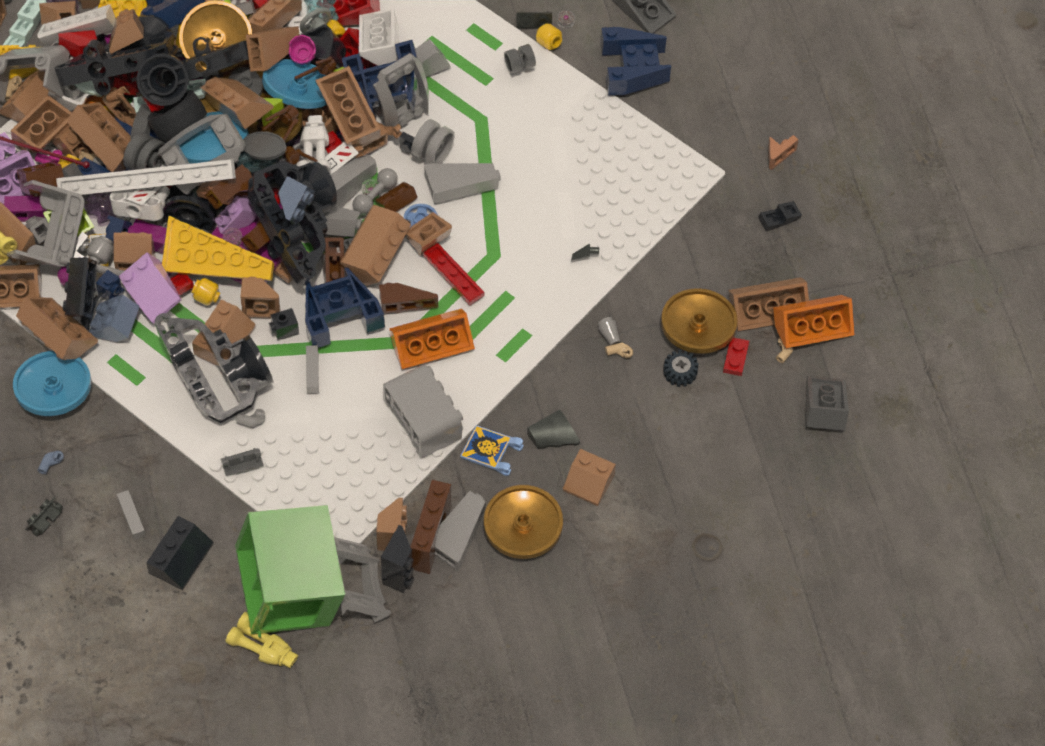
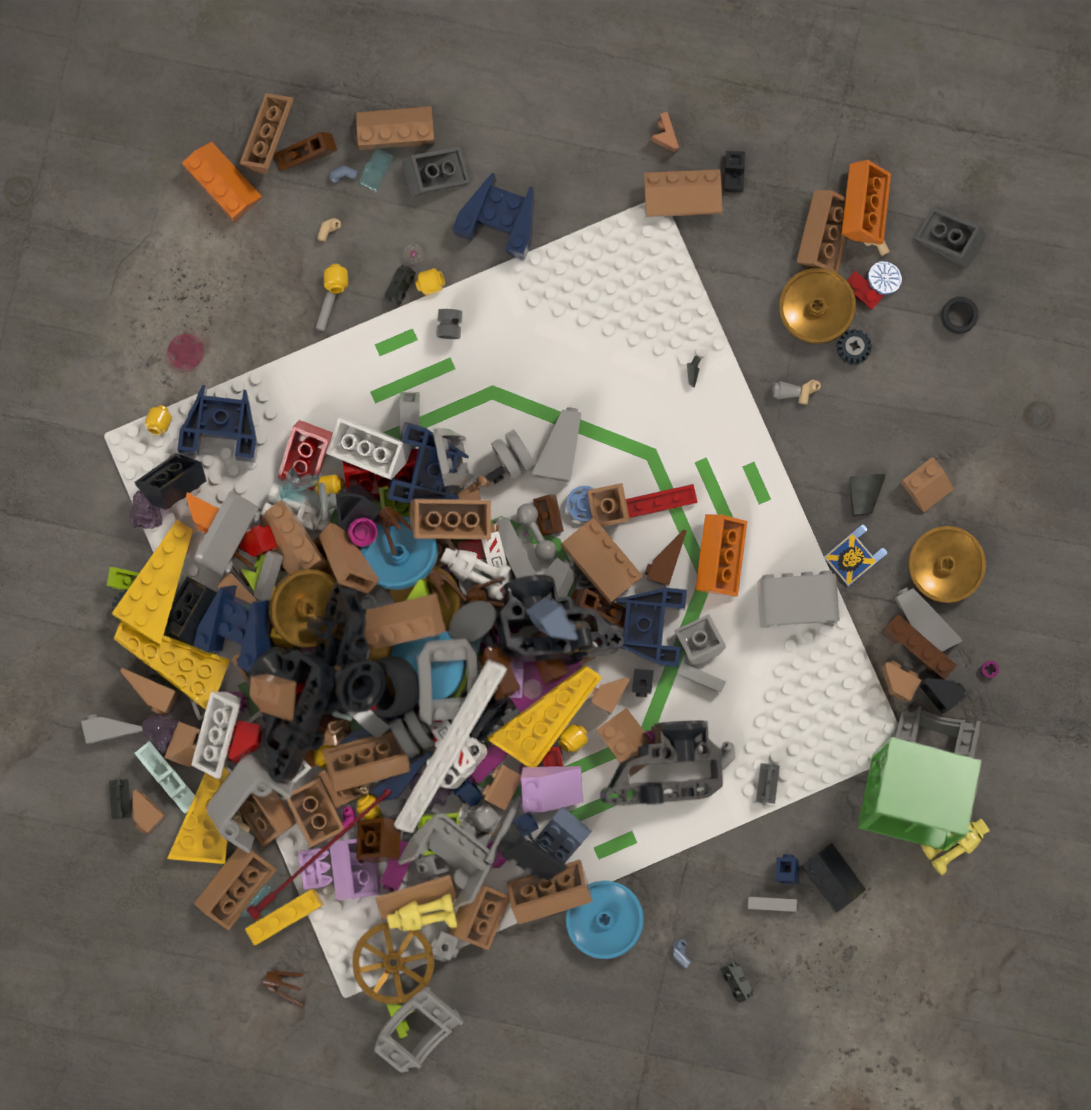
camera: 65 degrees left, 25 degrees up
(167, 511) = (781, 869): none -> dark blue brick
(344, 352) = (700, 640): none -> light grey slope
(450, 602) = (993, 674): none -> magenta bush
(736, 179) = (683, 193): none -> medium nougat slope
(757, 367) = (884, 277): none -> wheel
(760, 426) = (945, 315): none -> black tyre

